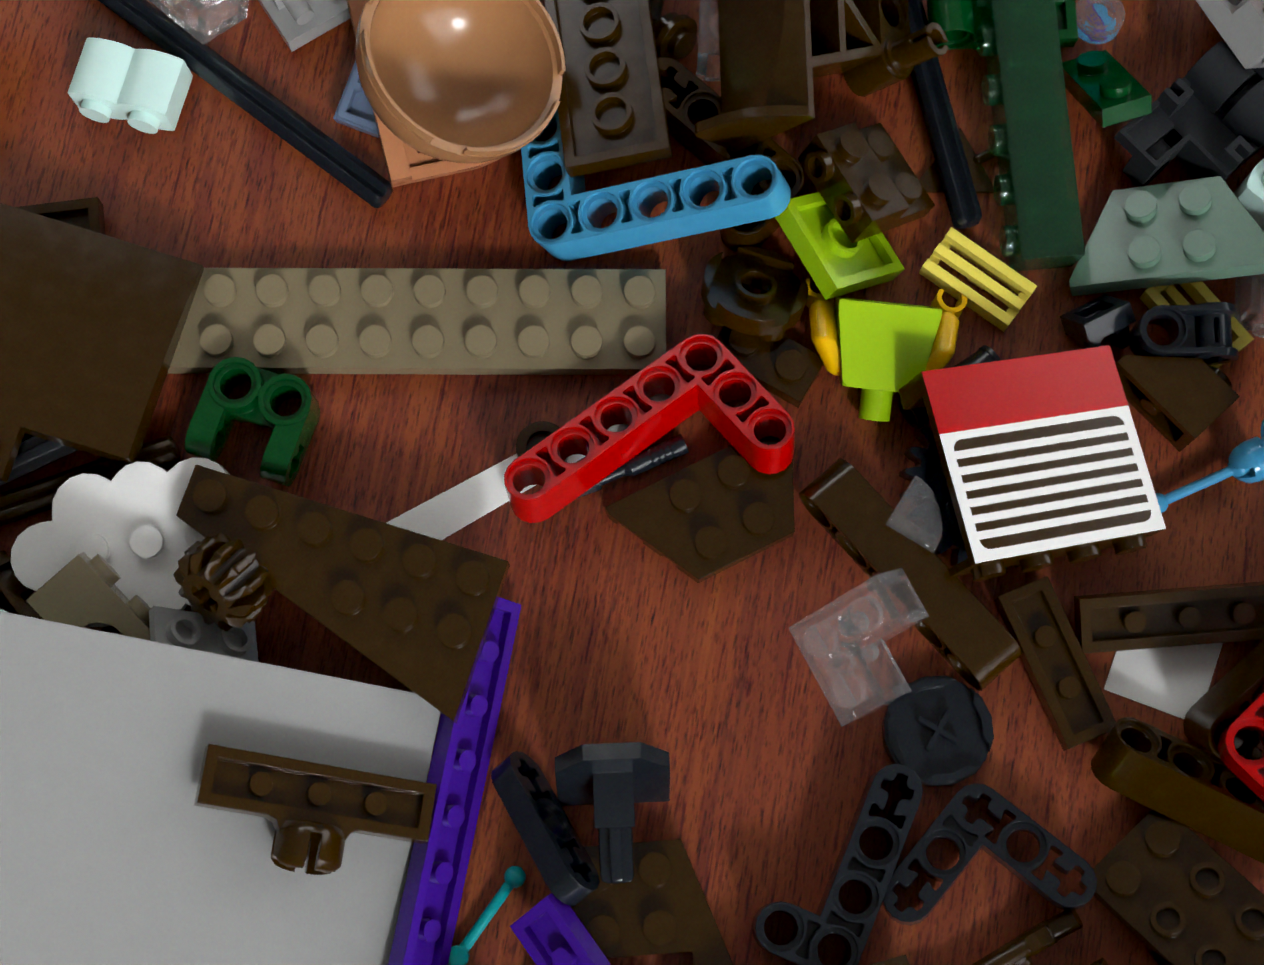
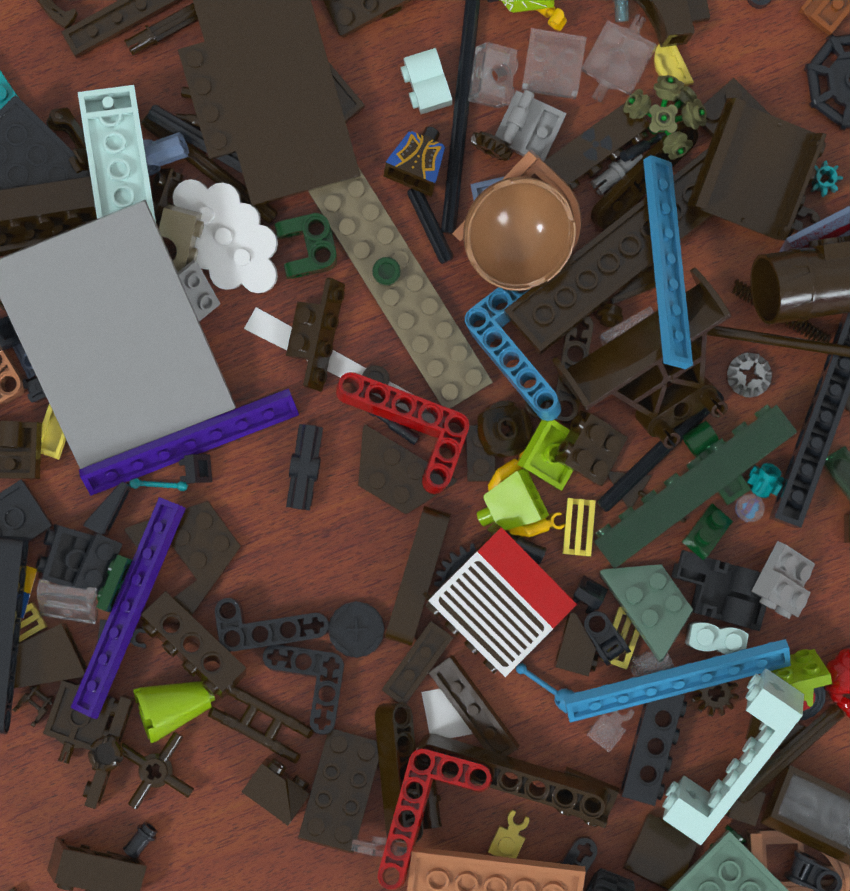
camera: 60 degrees right, 10 degrees up
(223, 581) = (223, 284): dark brown gear -> none
(243, 169) = (416, 161): none -> torso
(295, 46) = (491, 145): none -> dark brown gear
(313, 804) = (155, 385): dark brown plate -> none
(354, 216) = (430, 226): none -> black axle
(382, 319) = (386, 271): none -> dark green tile
(382, 589) = (264, 352): dark brown wing -> none
(401, 491) = (314, 333): none -> dark brown bracket
(496, 831) = (196, 468): none -> black tile
(545, 828) = (216, 473): black beam -> none
(613, 780) = (245, 503): black piece -> none
(614, 647) = (304, 467): none -> black piece
(848, 644) = (366, 569): clear brick -> none
(918, 515) = (442, 564): clear tile -> none

